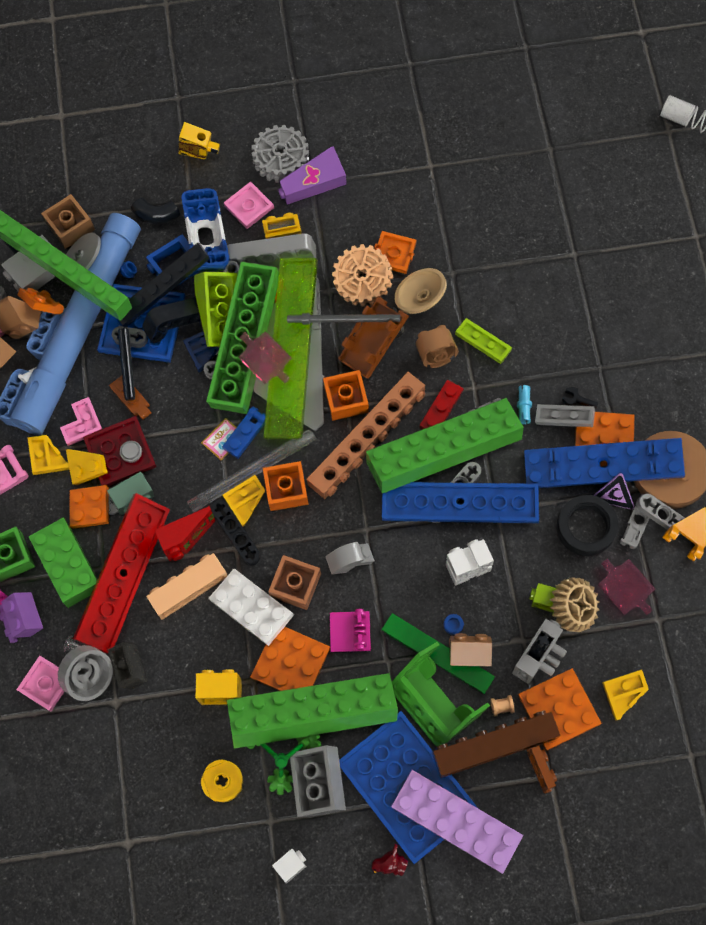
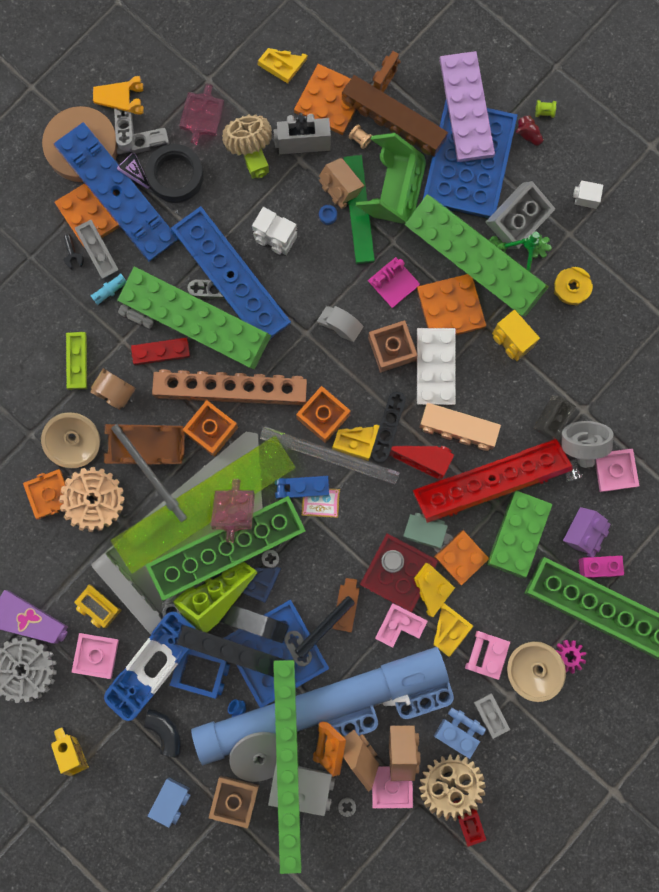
camera: 135 degrees left, 10 degrees up
(107, 183) = (169, 802): none -> medium blue brick
(400, 897) = (545, 109): none -> lime bush

